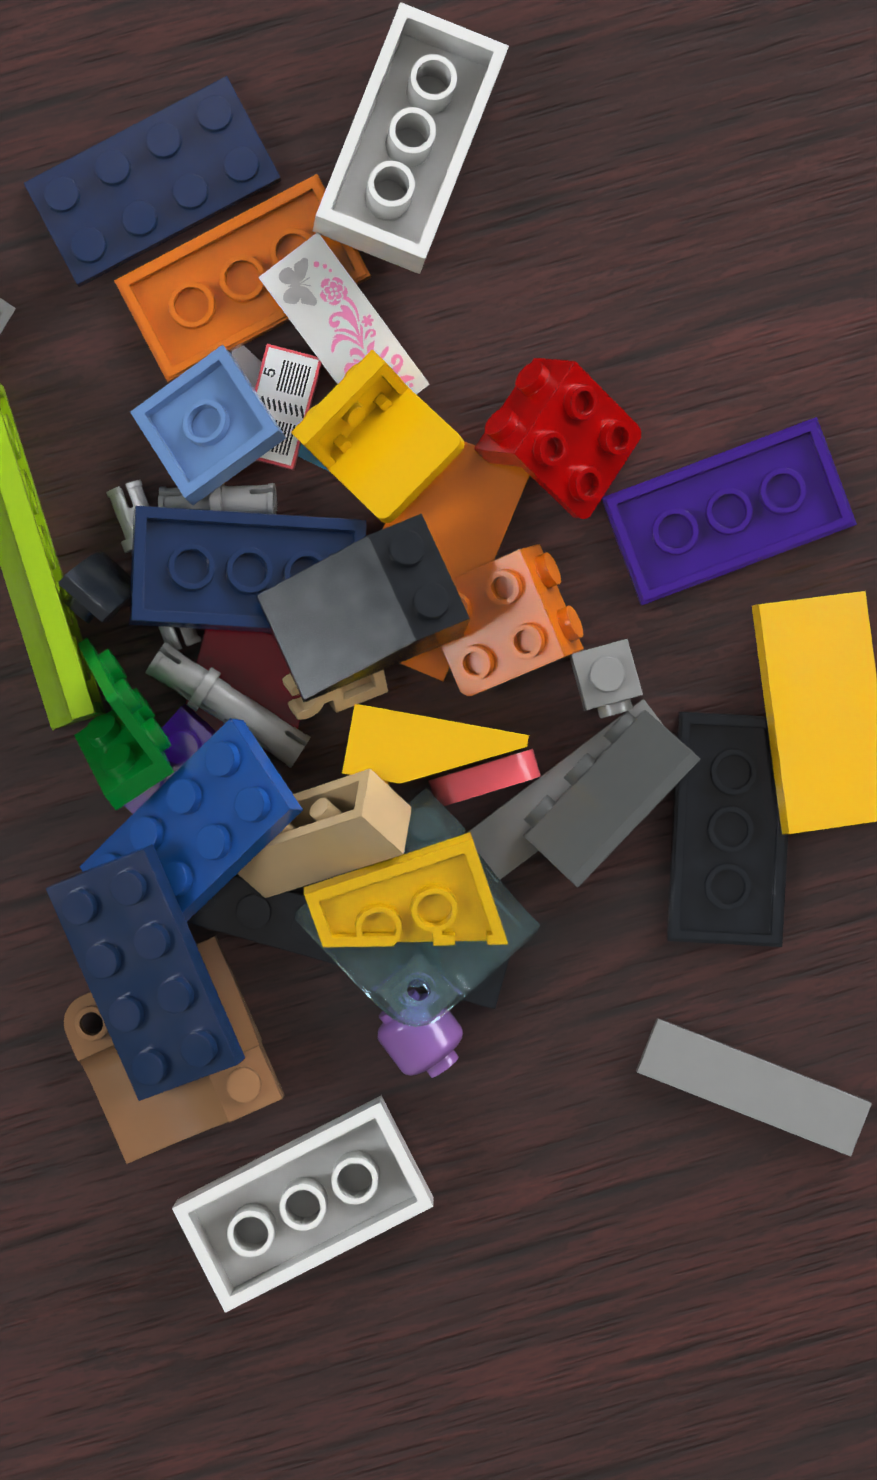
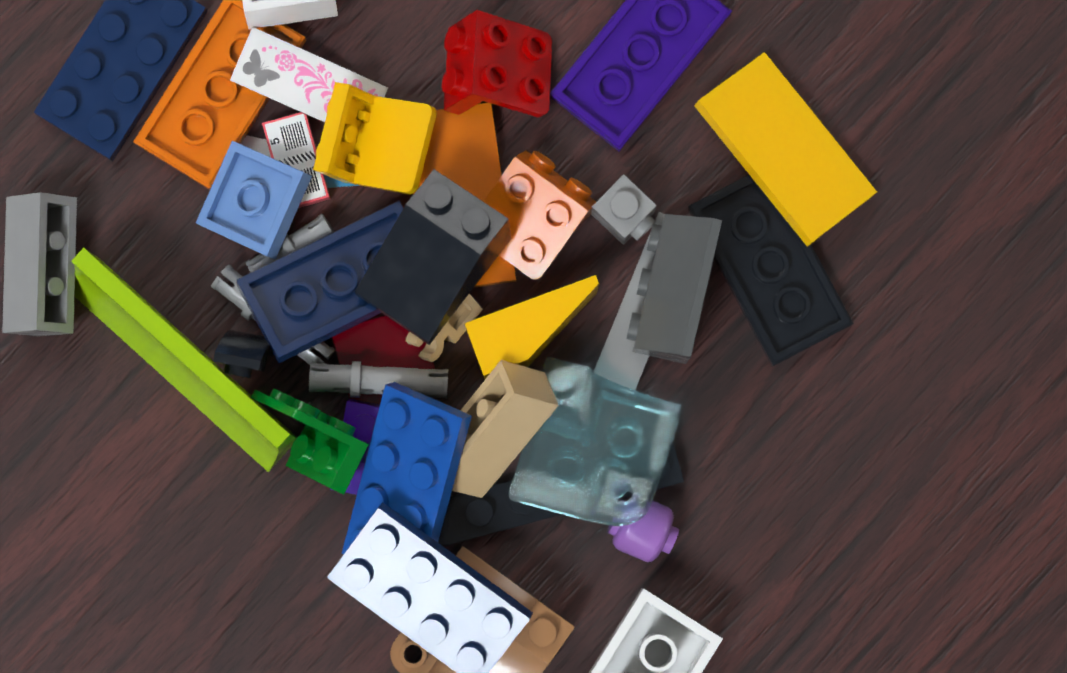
camera: 25 degrees left, 5 degrees down
(414, 897) = (584, 432): yellow wing -> none
(485, 778) = (583, 327): coral beam -> none
(753, 1087) = (891, 430): light grey tile -> none

